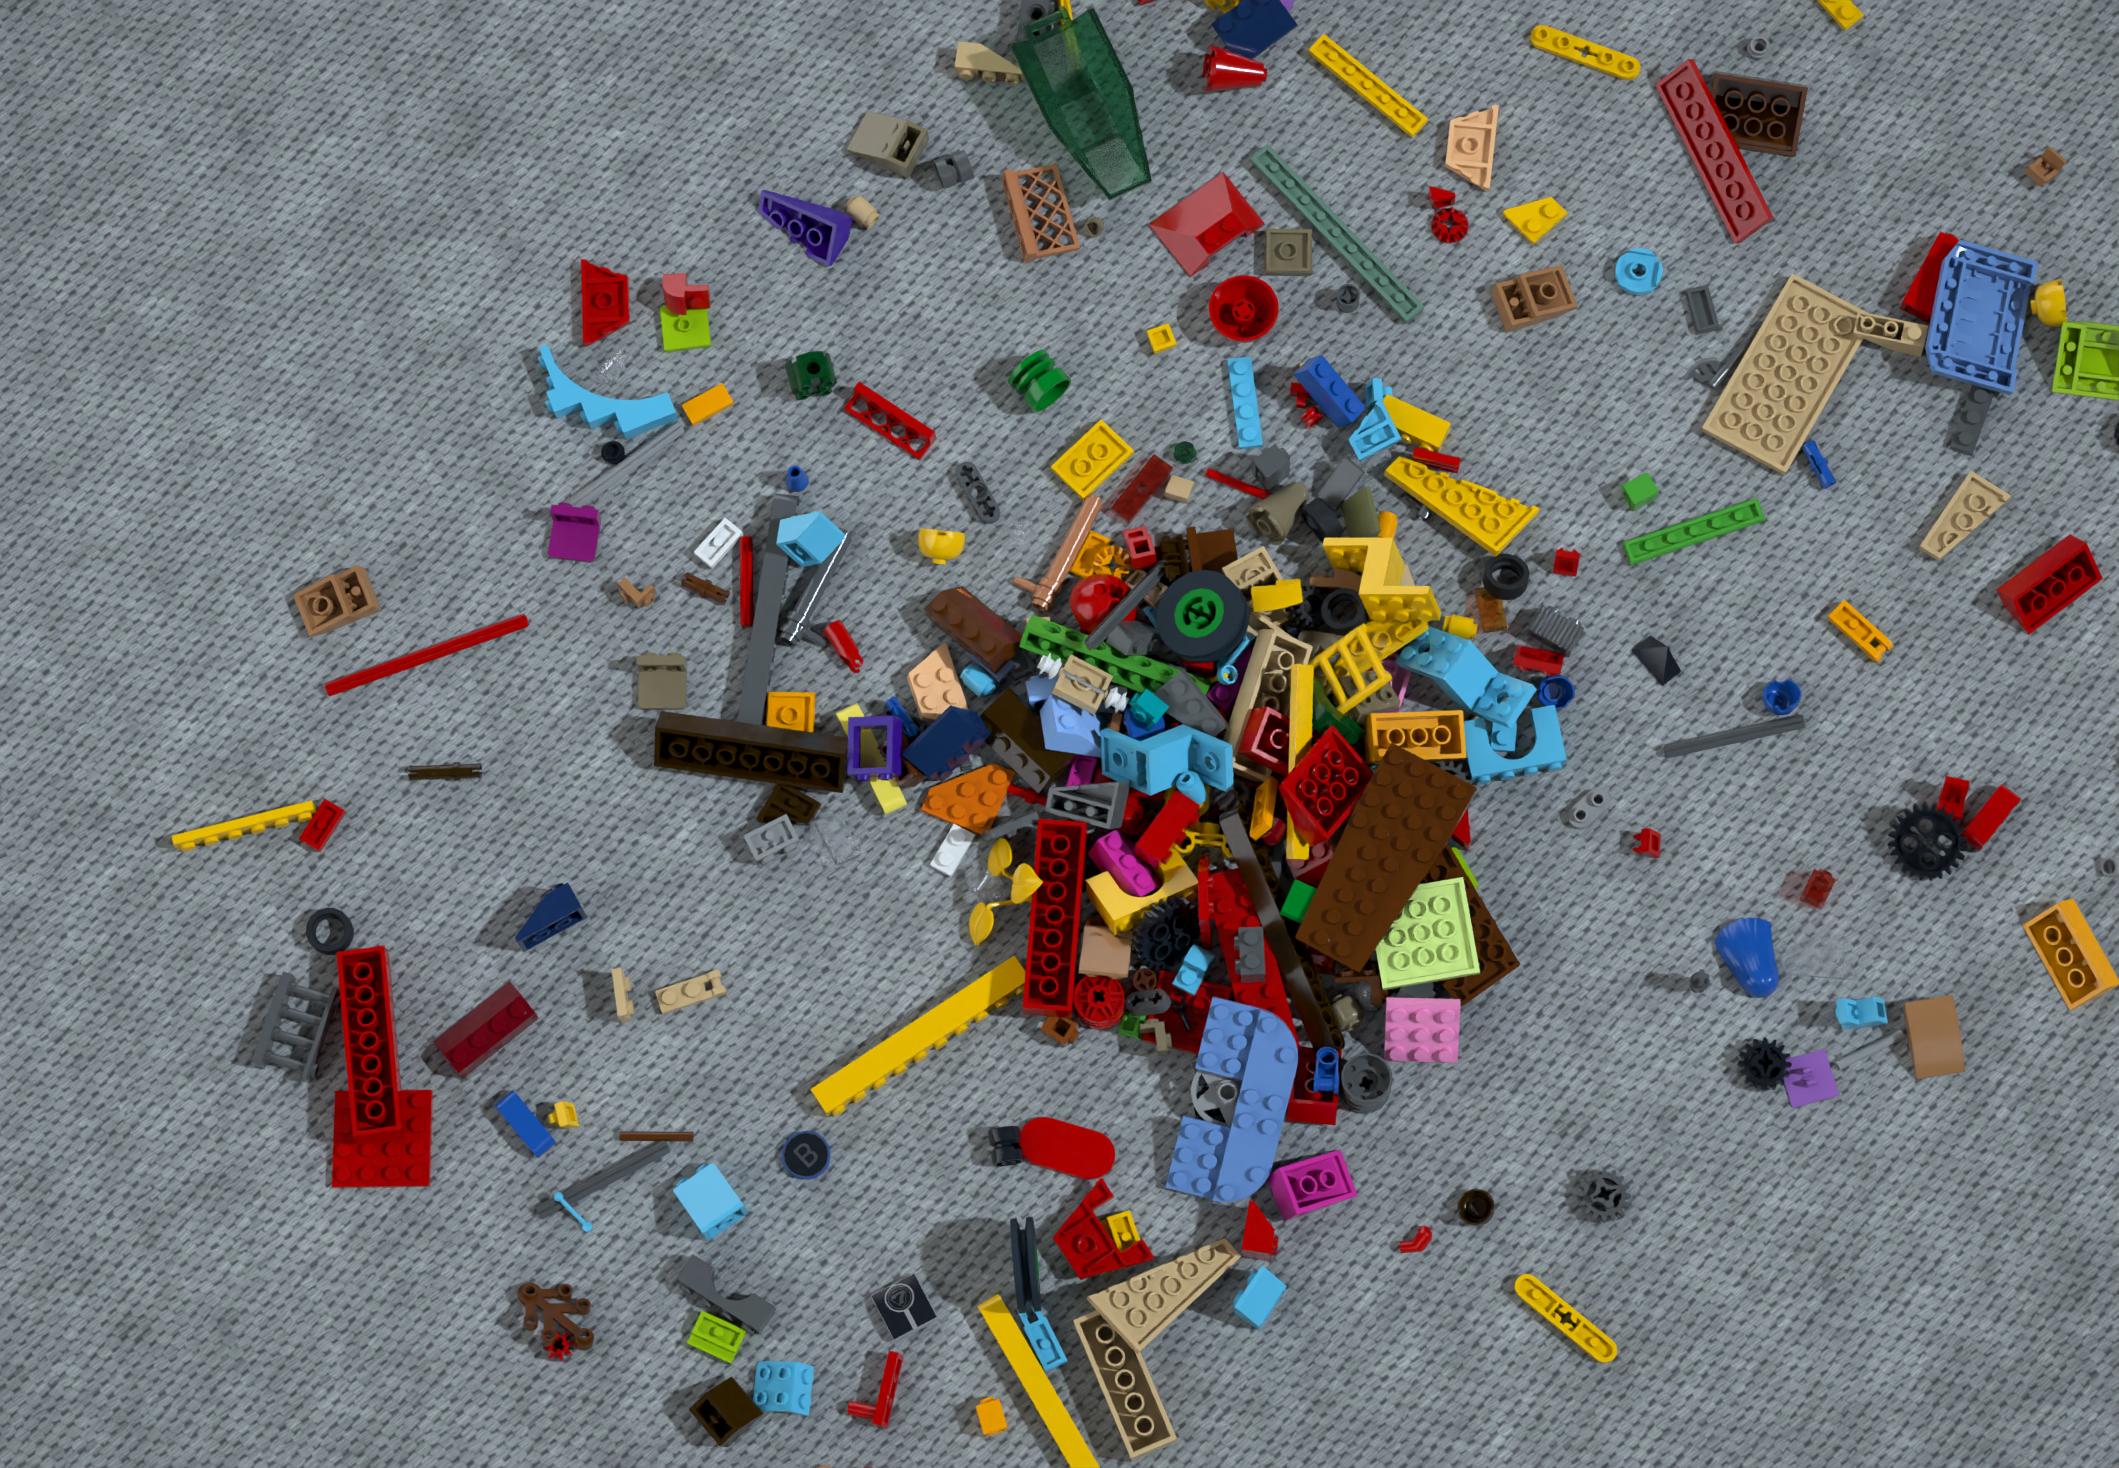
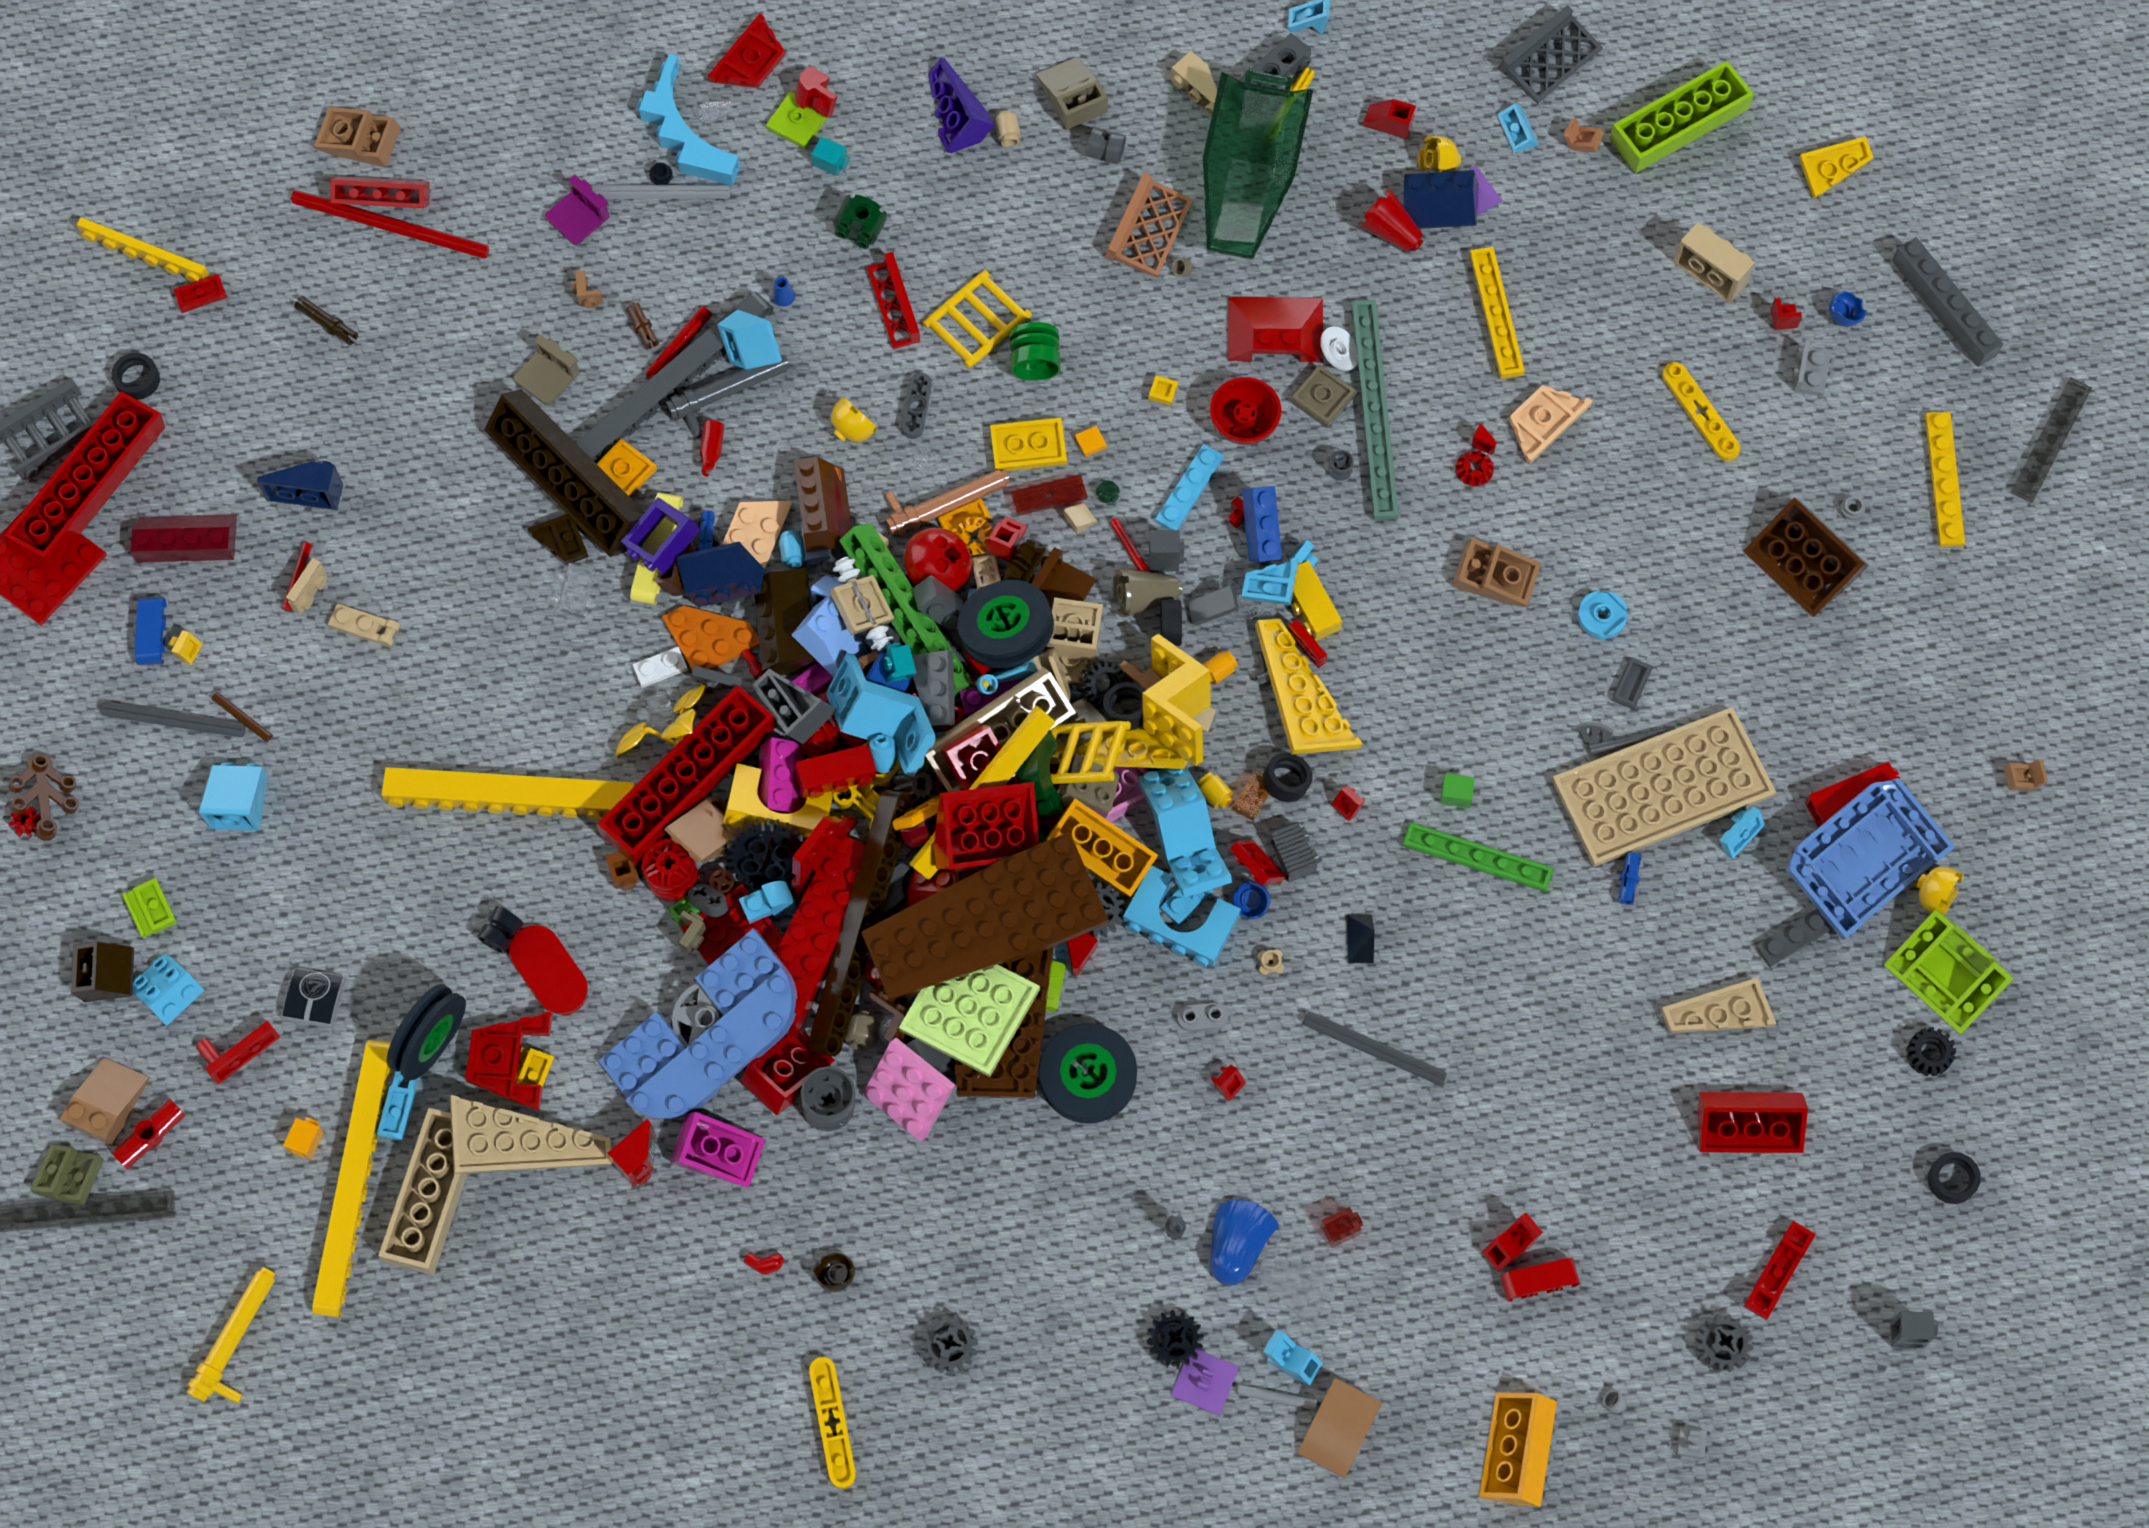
camera: 30 degrees right, 5 degrees down
(400, 634) = (380, 192): none -> red brick
(587, 1226) = (129, 745): medium azure hinge -> none
(602, 994) = (299, 568): none -> red bar
(707, 404) = (764, 190): light orange tile -> none
(718, 543) = (681, 299): white plate -> none
(739, 338) = (829, 156): none -> teal brick
(752, 1311) = (176, 852): dark grey arch -> none
(772, 839) = (524, 553): light grey bracket -> none
(806, 1155) = (342, 819): black tile -> none
(939, 372) = (966, 292): none -> yellow bar
(1131, 600) = (946, 570): dark grey axle -> none
(1137, 421) = (1090, 441): none -> light orange tile
(1182, 1012) = (730, 926): black hand -> none
(1252, 960) = (816, 920): dark grey brick -> none
(1259, 1297) = (594, 1206): medium azure slope -> none
(1271, 204) = (1339, 348): none -> white dish
(1277, 596) = (1078, 650): yellow slope -> none
(1298, 901) = (889, 904): green slope -> none
(1311, 417) = (1233, 537): red bush -> none
(1326, 1071) = (800, 1063): blue piece -> none
(1361, 515) = (1207, 639): olive slope -> none
(1535, 218) = (1551, 512): yellow wing -> none
(1541, 887) = (1065, 1093): none -> black wheel
(1605, 721) = (1265, 957): none -> tan plate
(1714, 151) = (1744, 562): red plate -> none
(1786, 691) = (1448, 1042): blue hair -> none
(1860, 630) = (1553, 1040): light orange plate -> none
(1873, 360) = (1745, 828): none -> medium azure hinge
(1891, 333) = (1778, 814): tan slope -> none
(1942, 824) = (1489, 1250): black gear -> none

